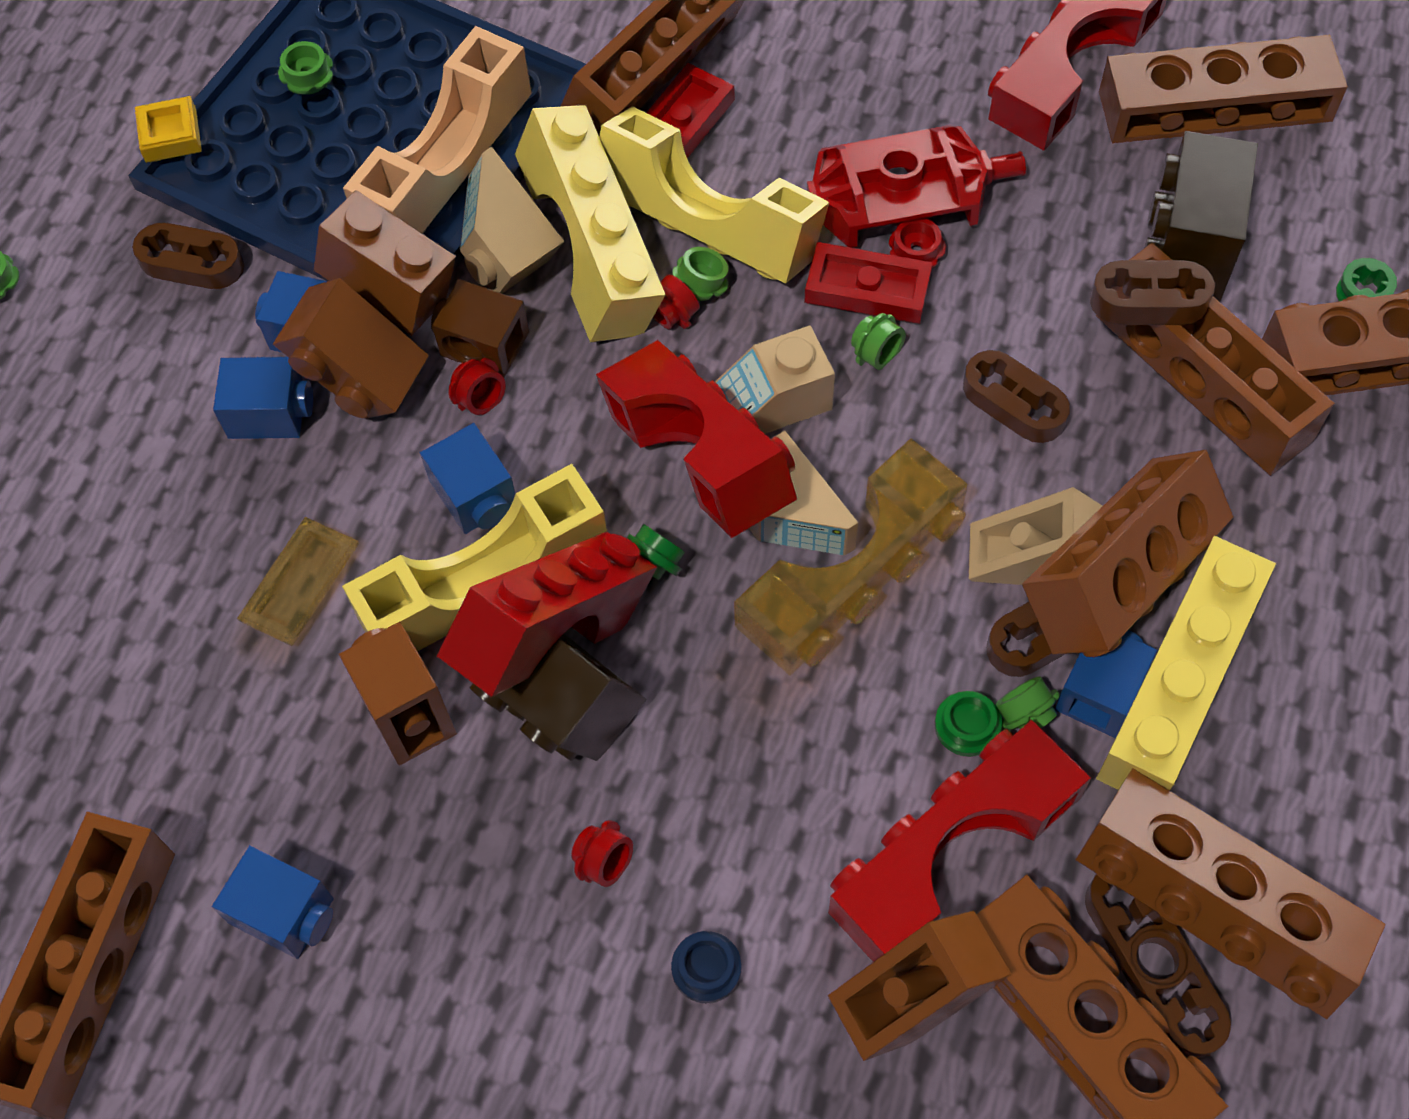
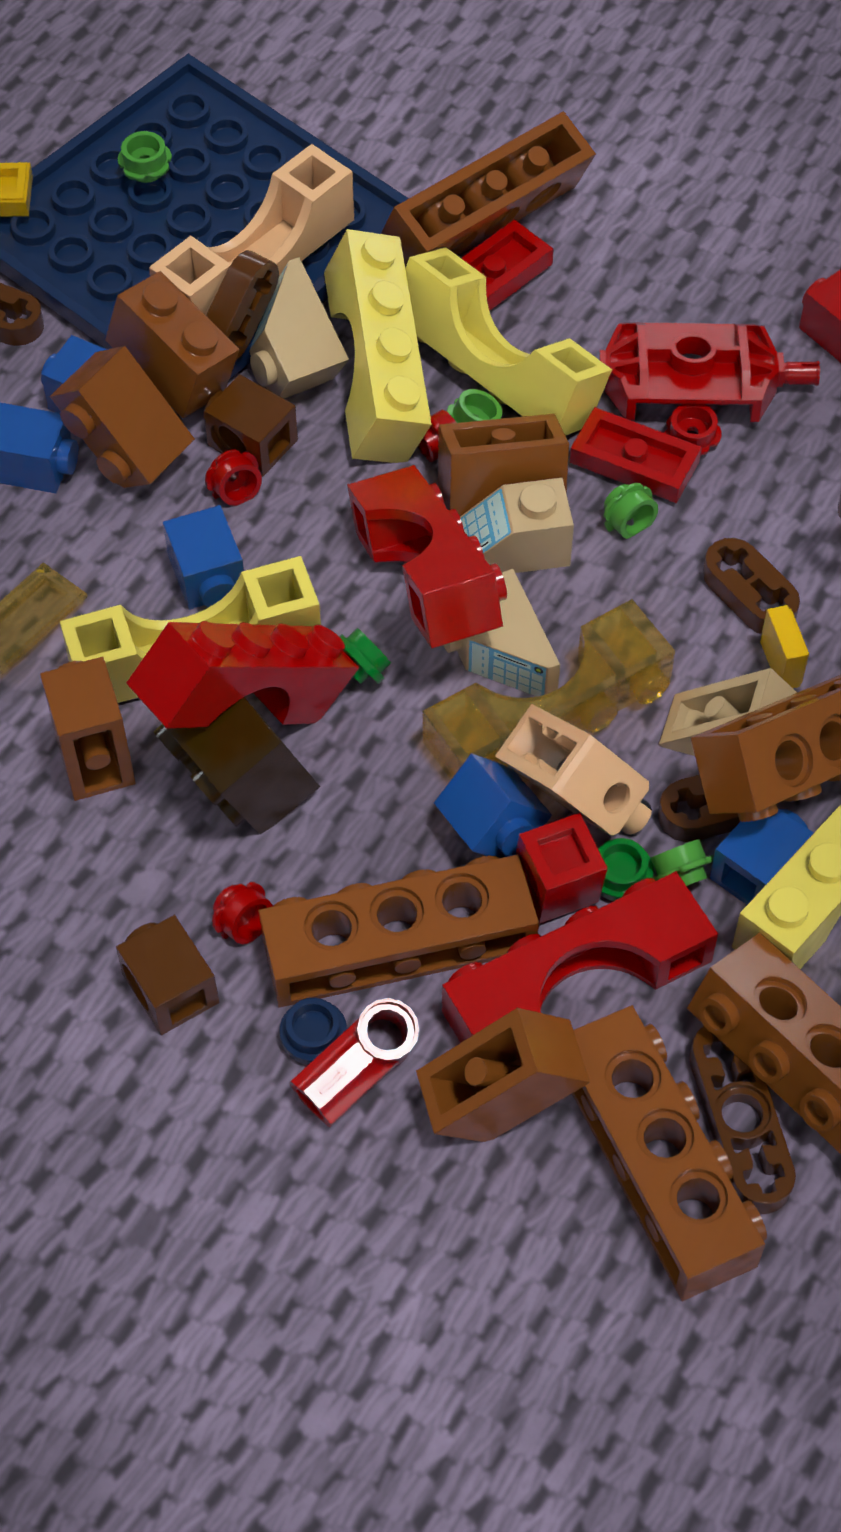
camera: 10 degrees right, 5 degrees down
(445, 199) = (244, 297): none -> reddish brown beam
(542, 939) = (167, 973): none -> reddish brown brick
(735, 313) = (497, 452): none -> dark orange brick
(747, 872) = (379, 956): none -> dark orange brick
(757, 998) = (353, 1063): none -> red piece
(830, 691) = (490, 806): none -> blue brick
(913, 739) = (561, 867): none -> red brick
(932, 646) = (588, 781): none -> light nougat torso
(1067, 453) = (784, 645): none -> yellow tile

